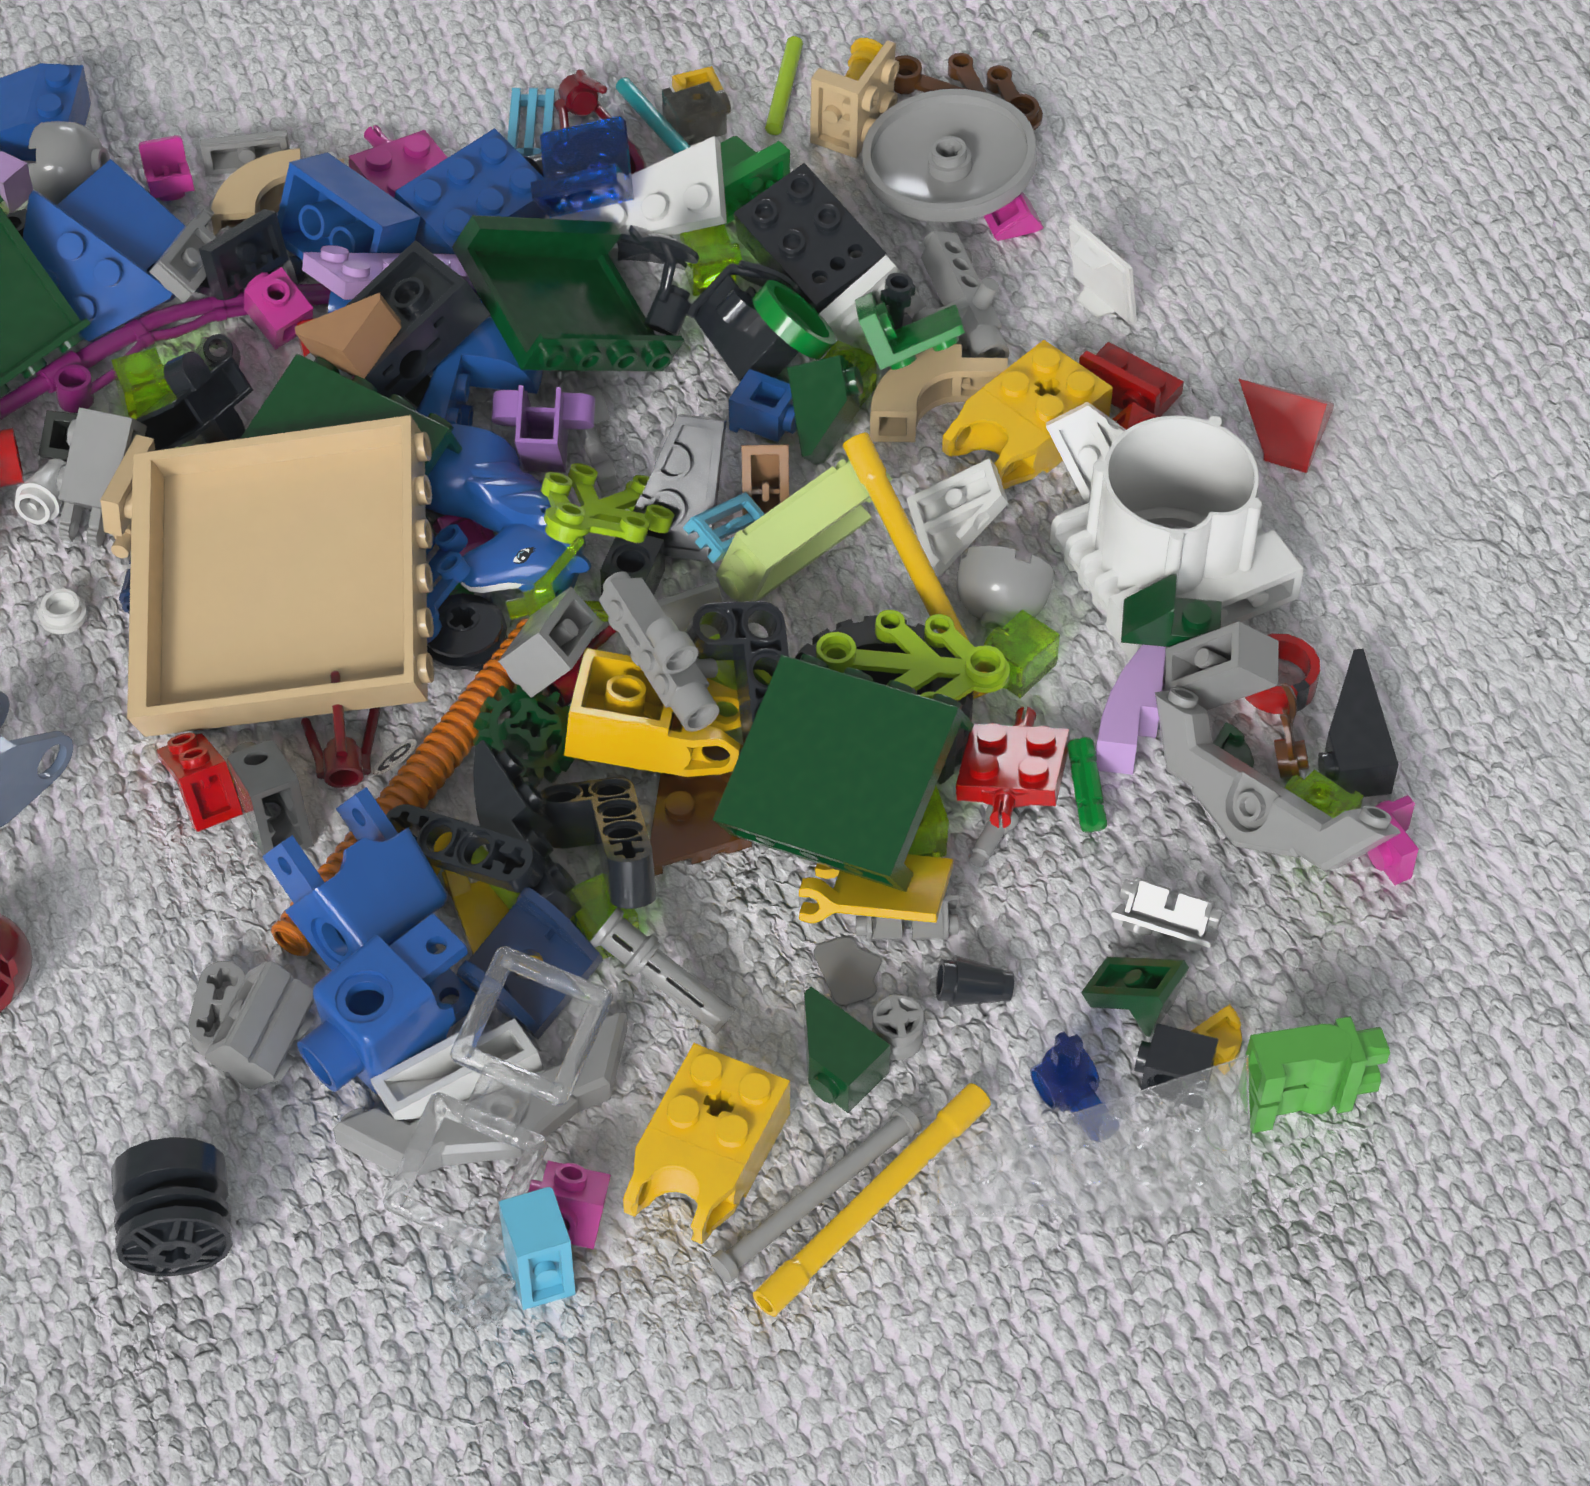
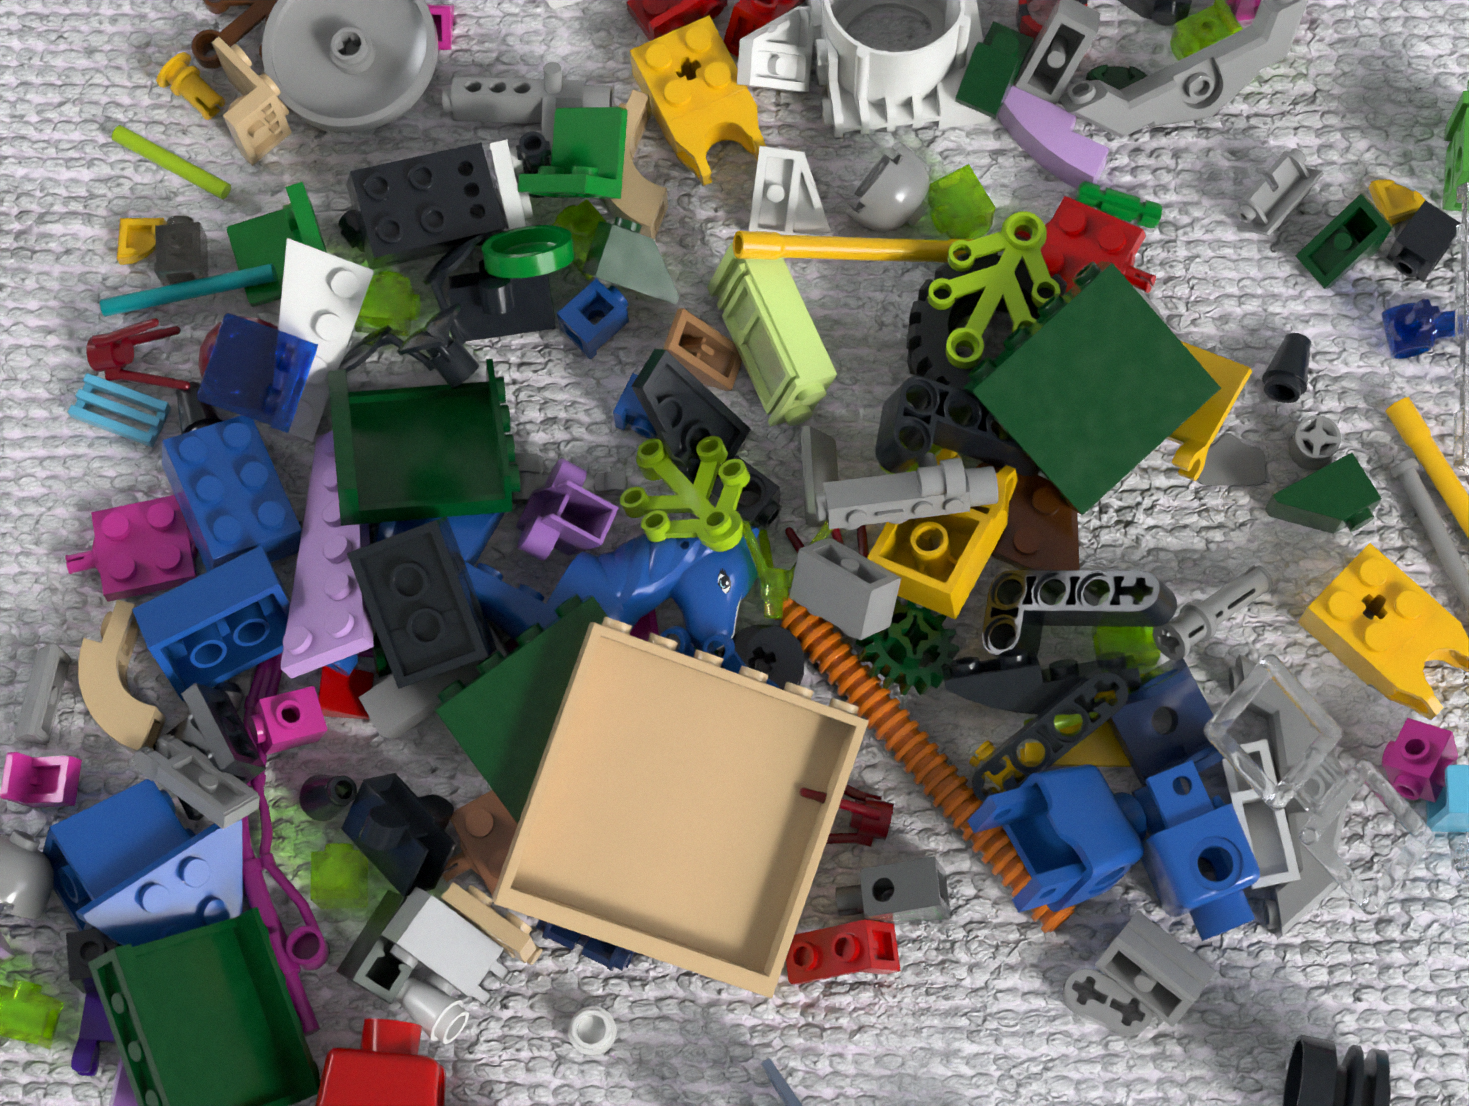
camera: 65 degrees left, 20 degrees up
(352, 335) = (448, 652): medium nougat slope -> none
(394, 757) = (882, 770): clear sticker -> none
(712, 538) = (738, 394): medium azure tile -> none
(1290, 754) = (1141, 34): reddish brown plate -> none

